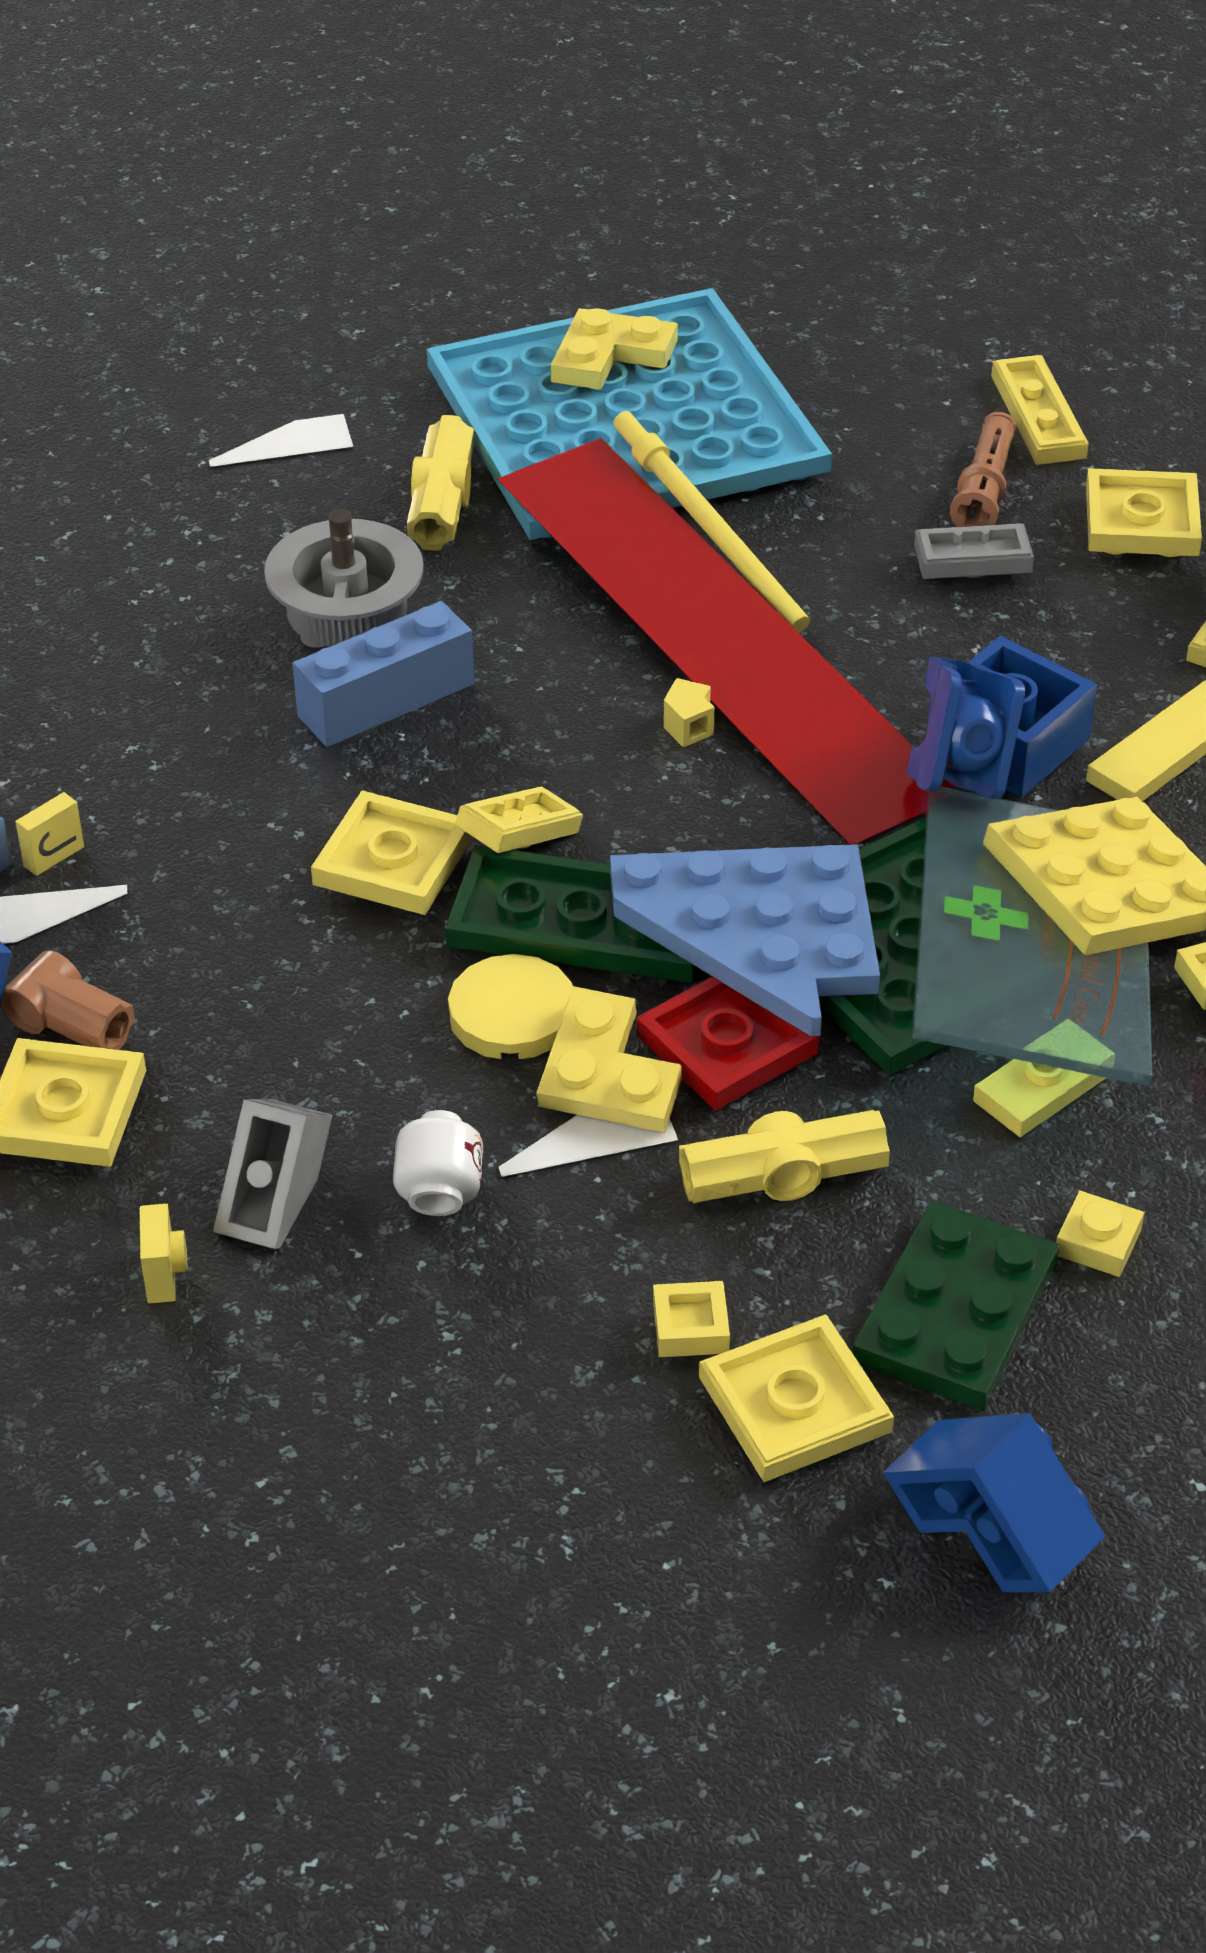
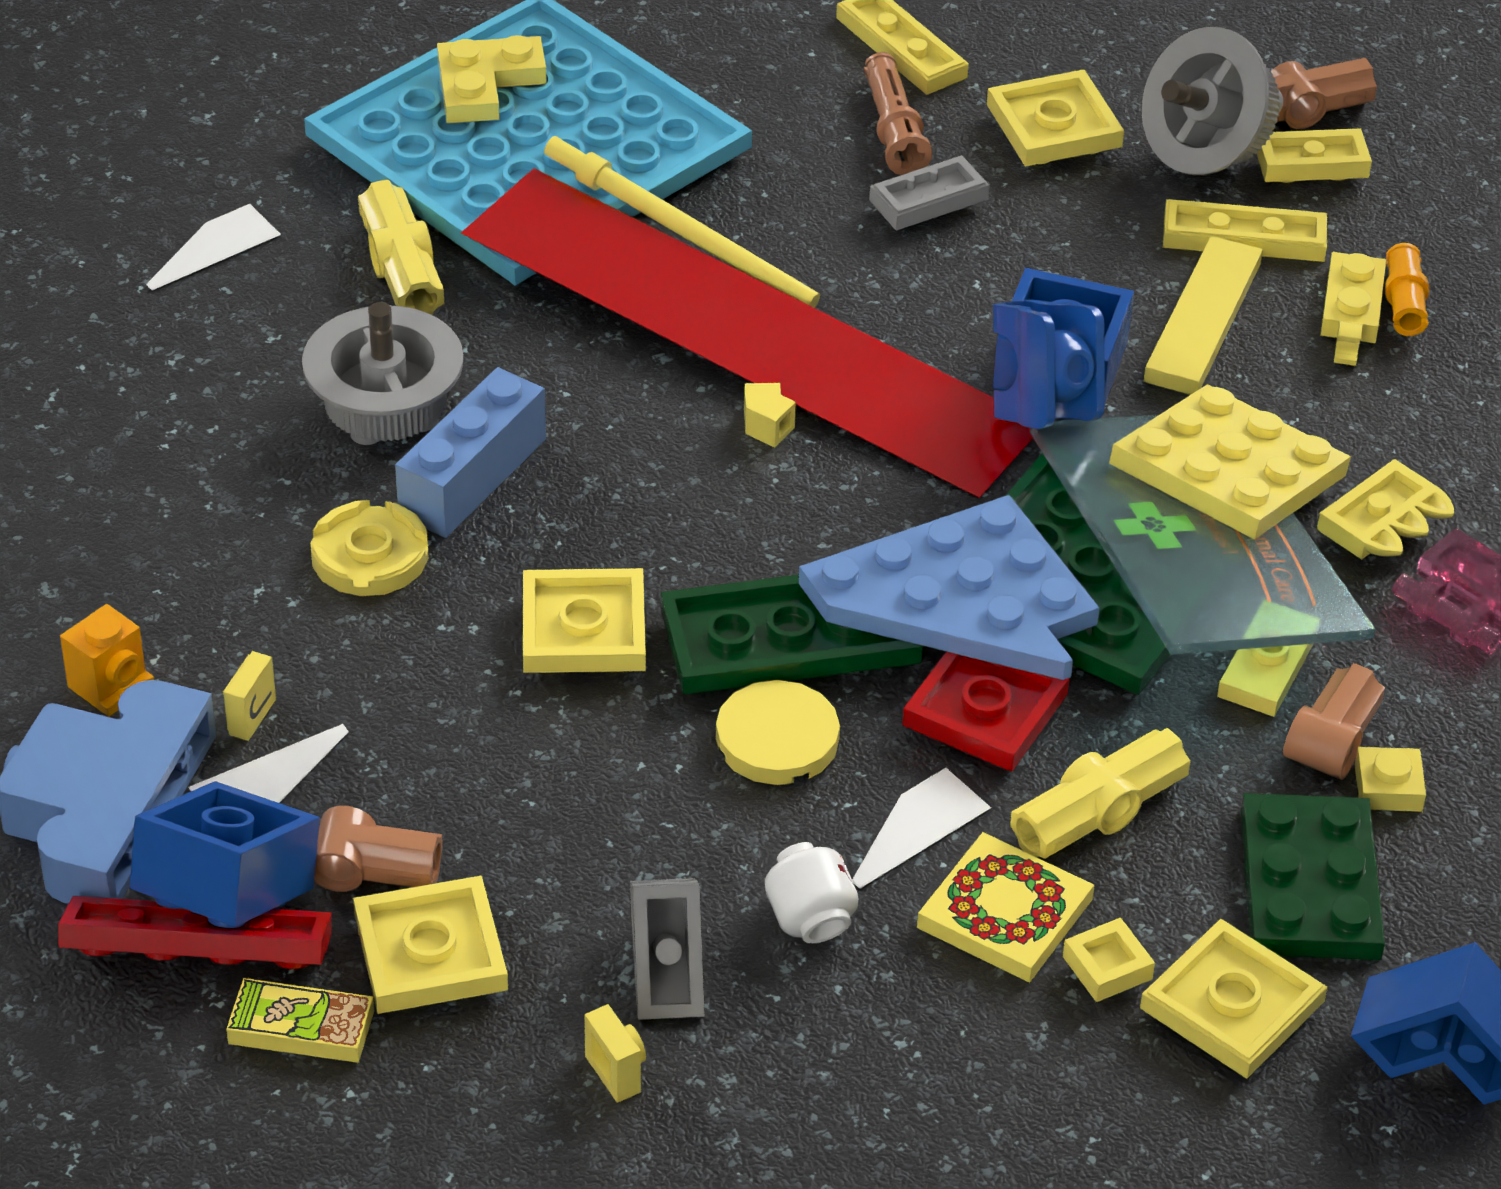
camera: 25 degrees left, 0 degrees up
(248, 736) = (369, 548): none -> light yellow tile
(519, 819) = (684, 556): light yellow plate -> none
(595, 1077) = (895, 775): light yellow plate -> none
(627, 1237) = (1005, 906): none -> light yellow tile
(1059, 1166) = (1334, 726): none -> nougat piece

